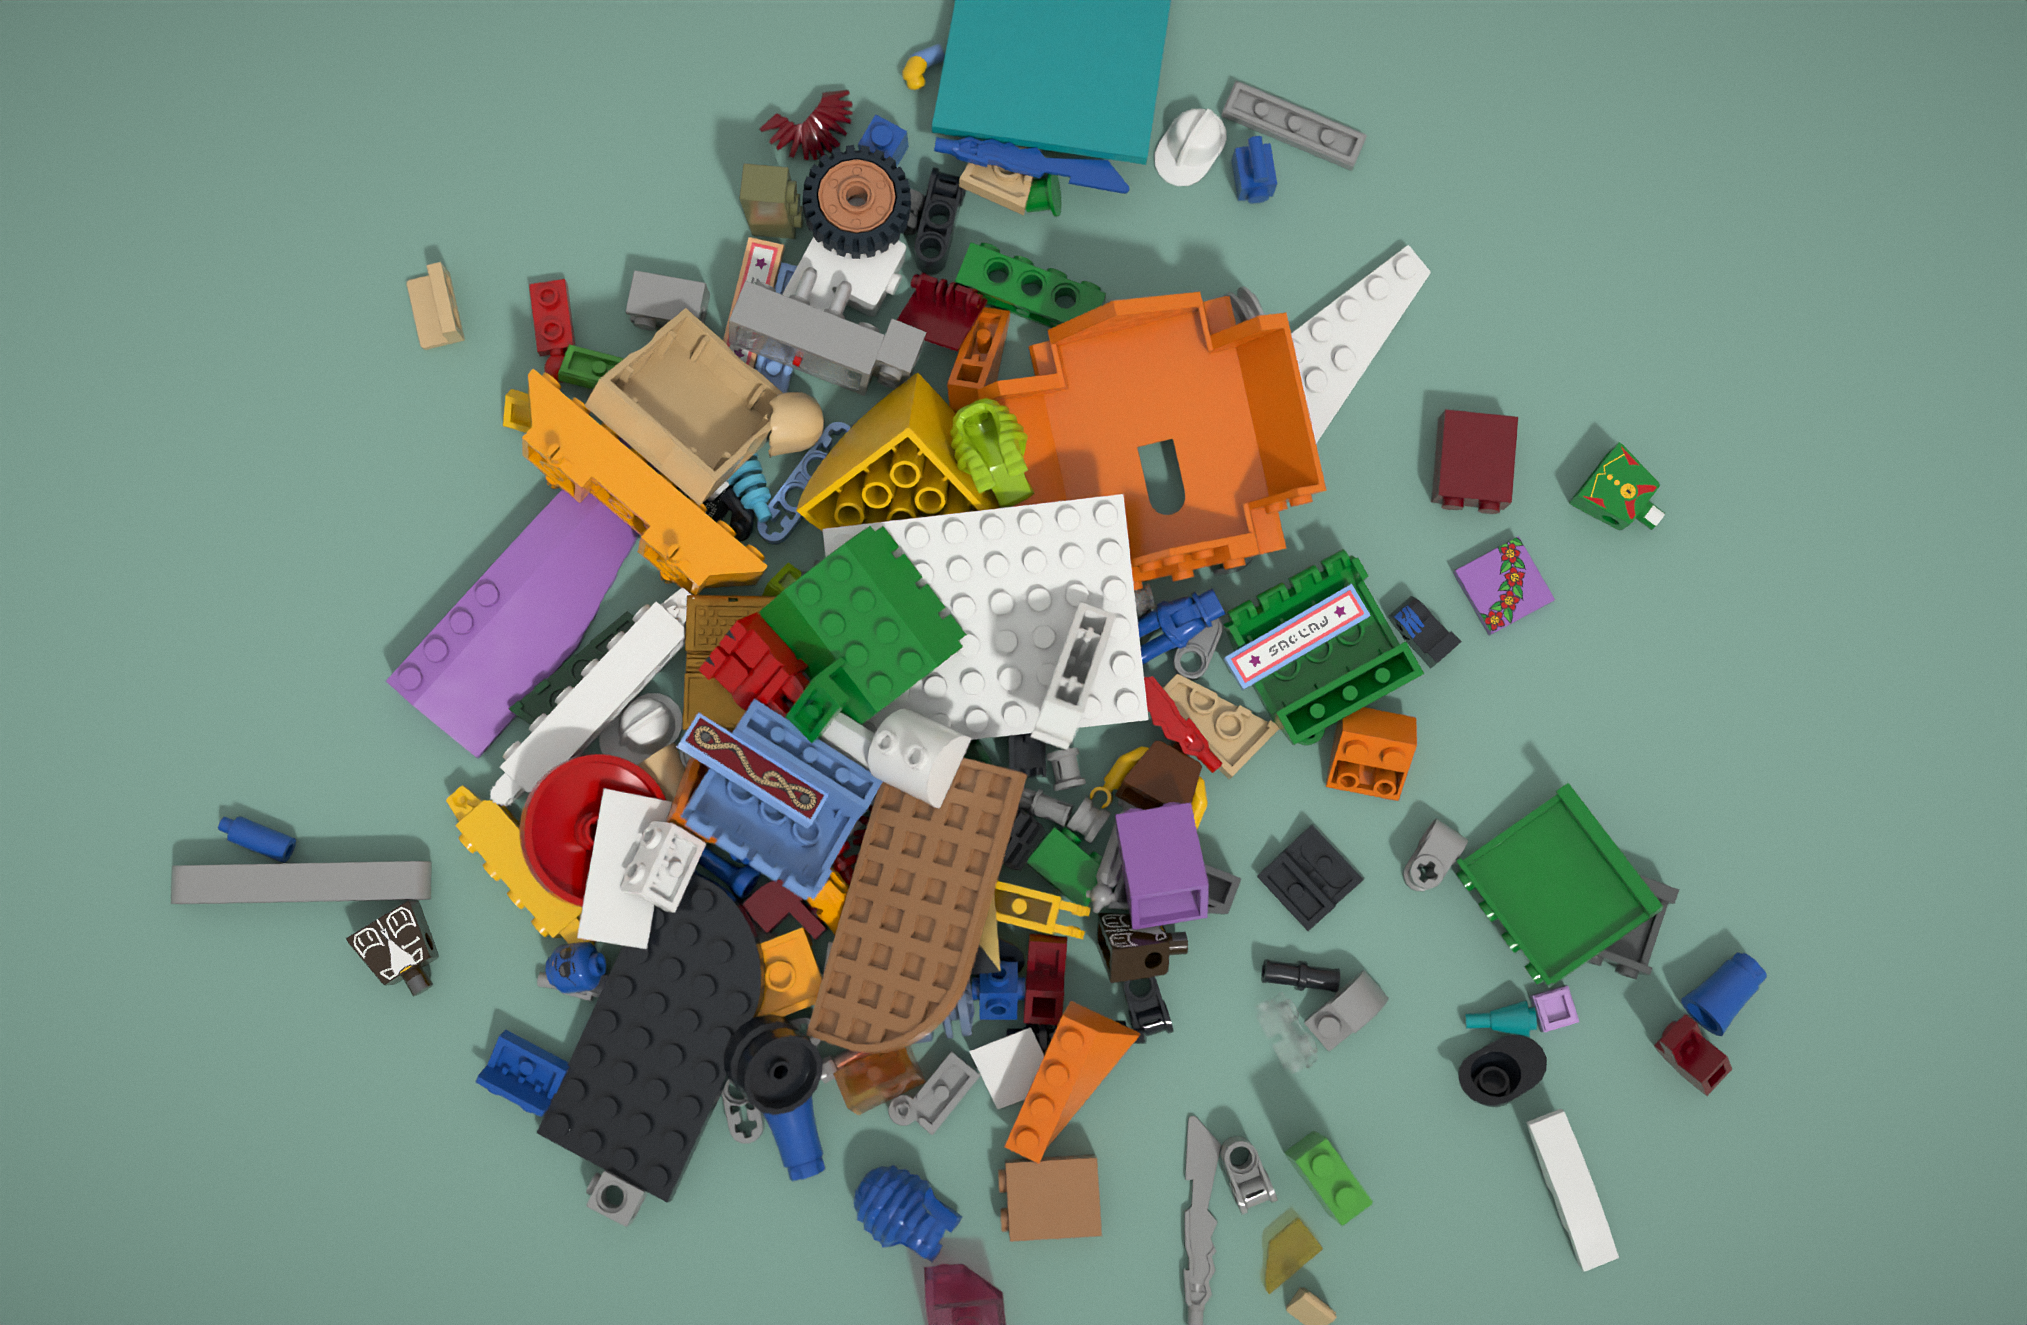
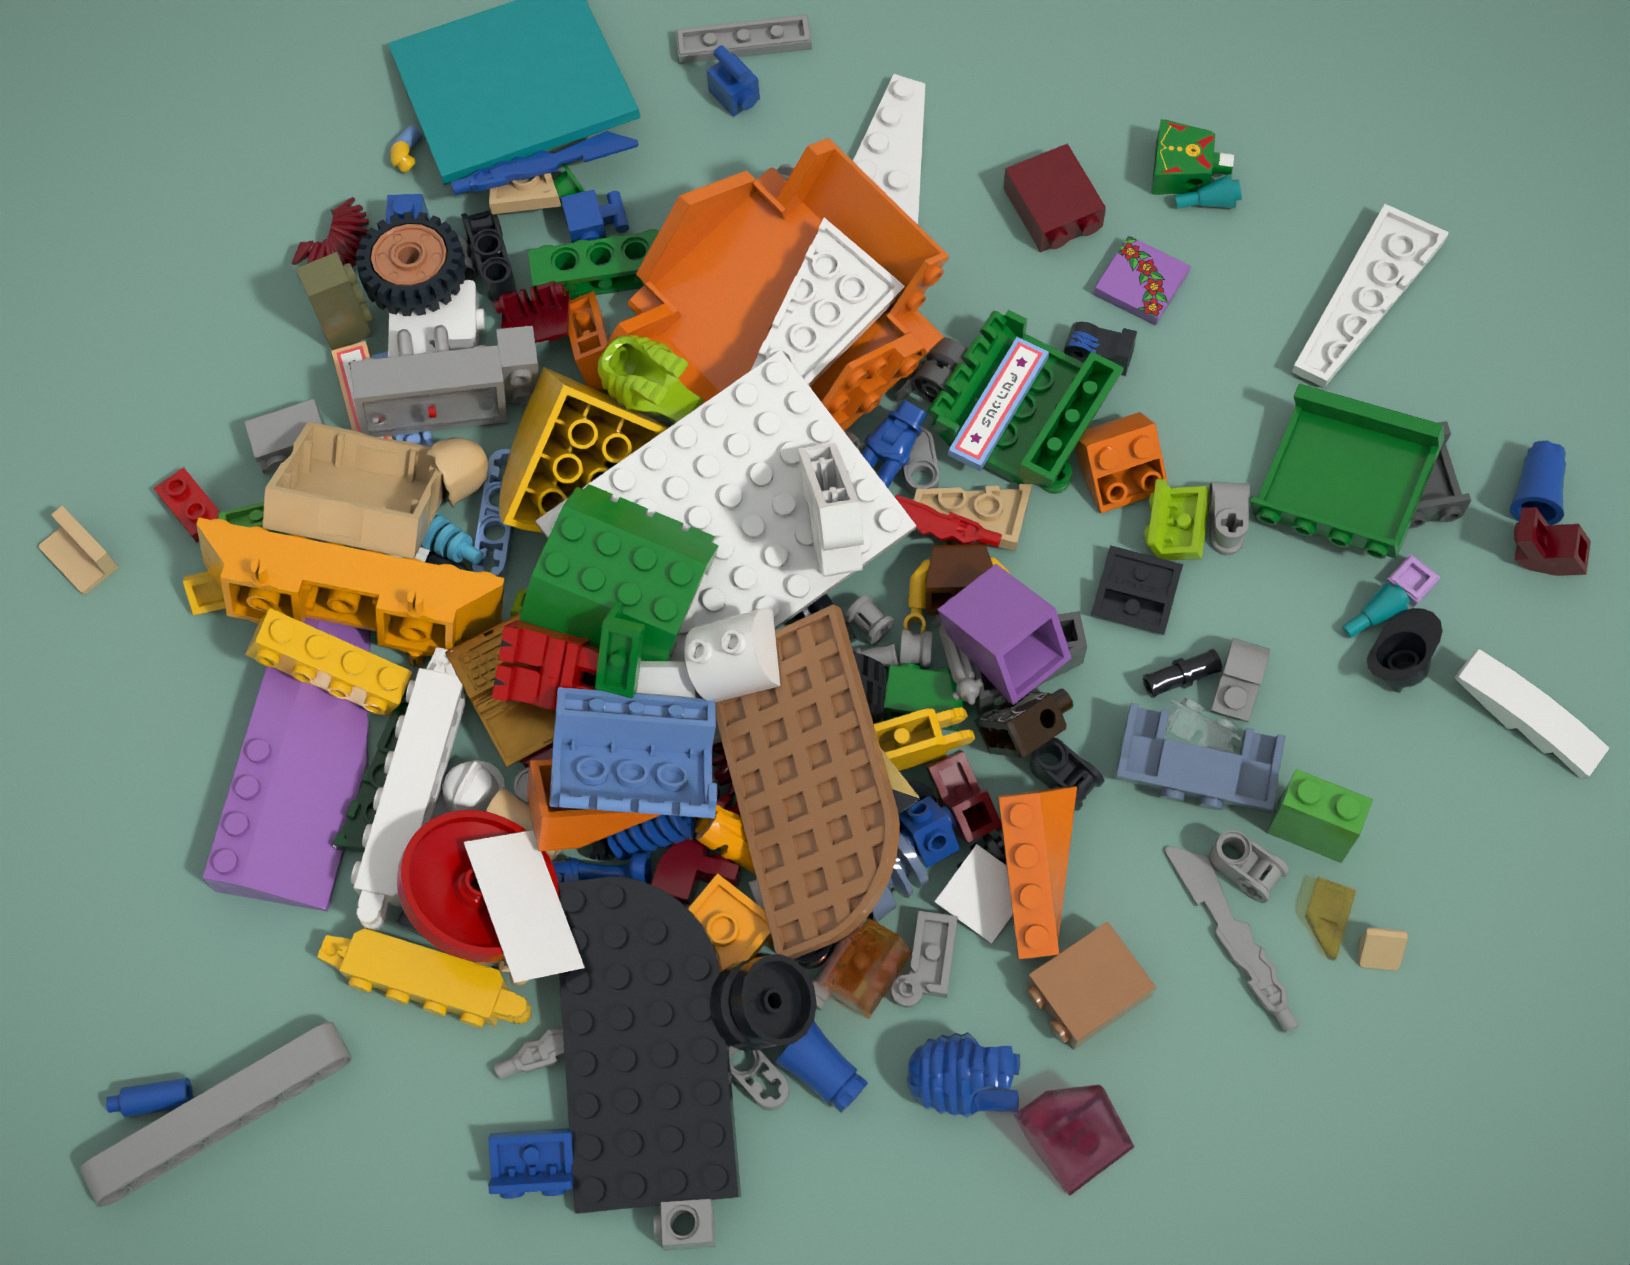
camera: 25 degrees left, 15 degrees down
(398, 947) = (343, 1118): dark brown torso -> none
(575, 967) = (526, 1032): blue head -> none
(584, 550) = (328, 663): none -> yellow brick
(663, 865) = (557, 879): white bracket -> none
(753, 770) = (593, 748): tile -> none
(1044, 234) = (587, 219): none -> blue brick
(1190, 147) = (668, 95): white piece -> none
(1194, 467) = (829, 304): none -> white wing
(1254, 1074) = (1198, 771): none -> sand blue bracket
(1275, 565) = (936, 370): none -> dark grey wheel
(1384, 837) = (1177, 521): none -> lime bracket
(1626, 542) = (1218, 193): none -> teal cone
(1724, 705) = (1378, 275): none -> white wing

